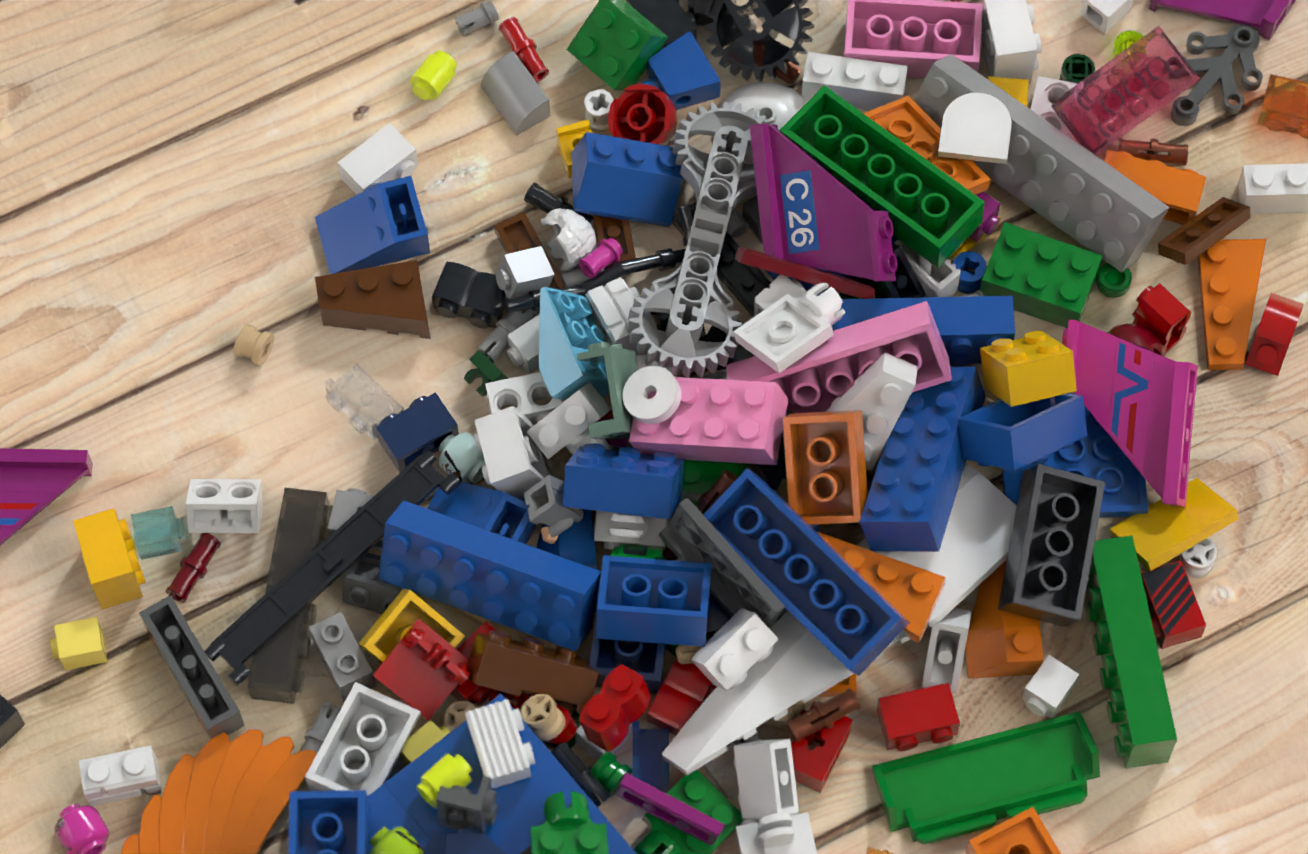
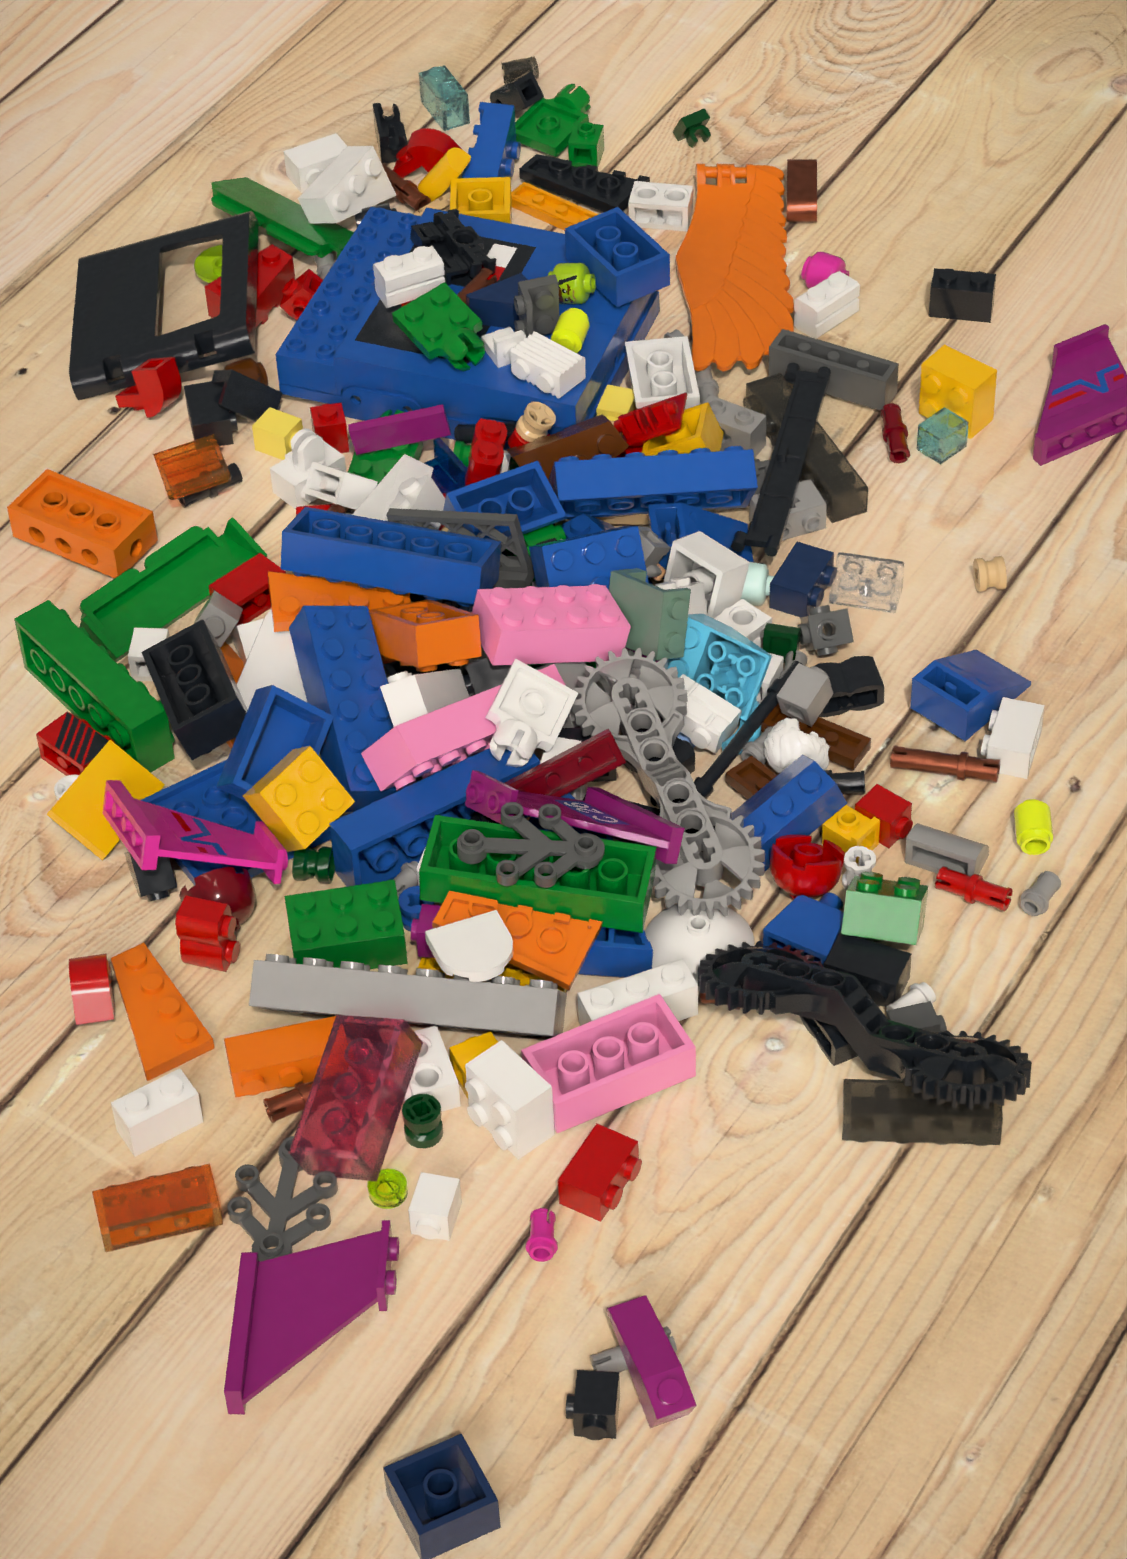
camera: 150 degrees right, 20 degrees down
(79, 643) = (923, 348): light yellow brick -> none
(224, 506) = (903, 461): white brick -> none
(375, 299) = (916, 638): reddish brown wedge -> none
(442, 167) = (944, 763): none -> copper pin
(444, 356) = (836, 627): none -> dark grey brick
(517, 807) = (500, 343): none -> white bracket
(541, 148) = (892, 812): none -> red brick
(606, 253) = (750, 750): dark pink pin -> none
(662, 404) = (606, 600): white piece -> none
(883, 162) = (576, 849): none -> dark grey plant
(975, 669) = (220, 616): none -> light grey brick
(1204, 230) = (207, 1030): reddish brown plate -> none

